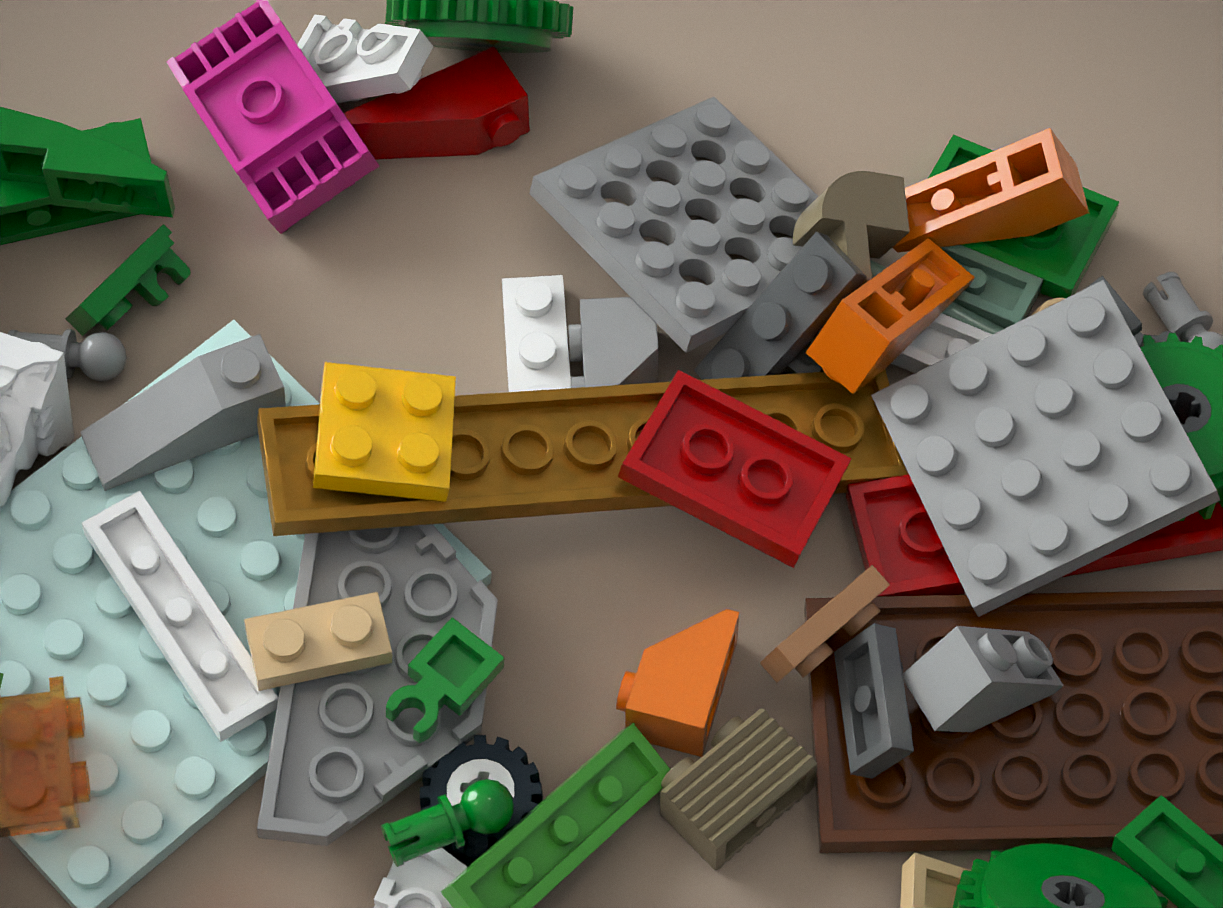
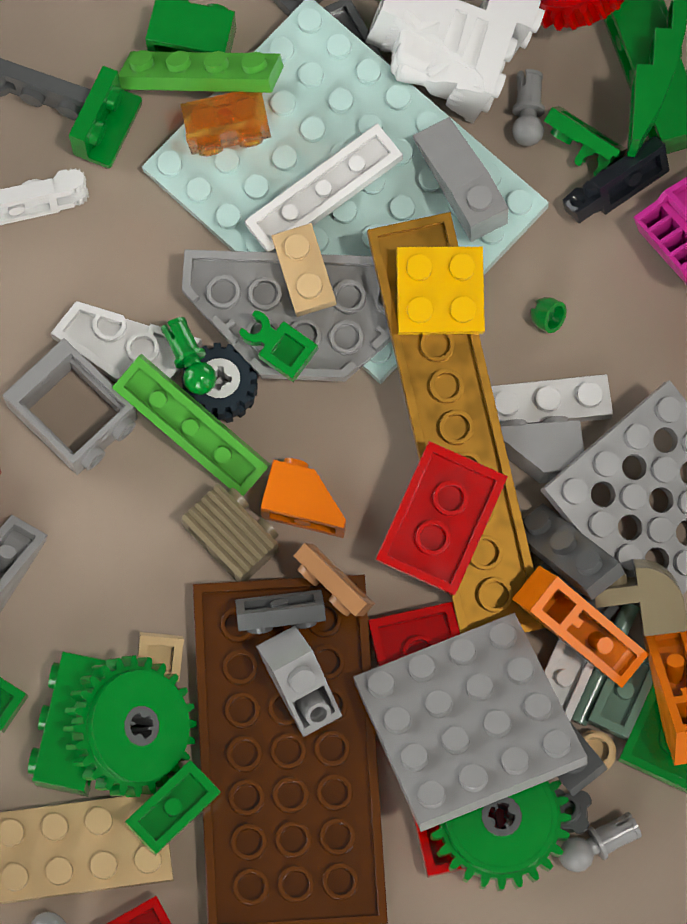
camera: 85 degrees right, 15 degrees up
(209, 255) = (618, 182): none -> black hinge
(402, 345) = (548, 314): none -> green hinge

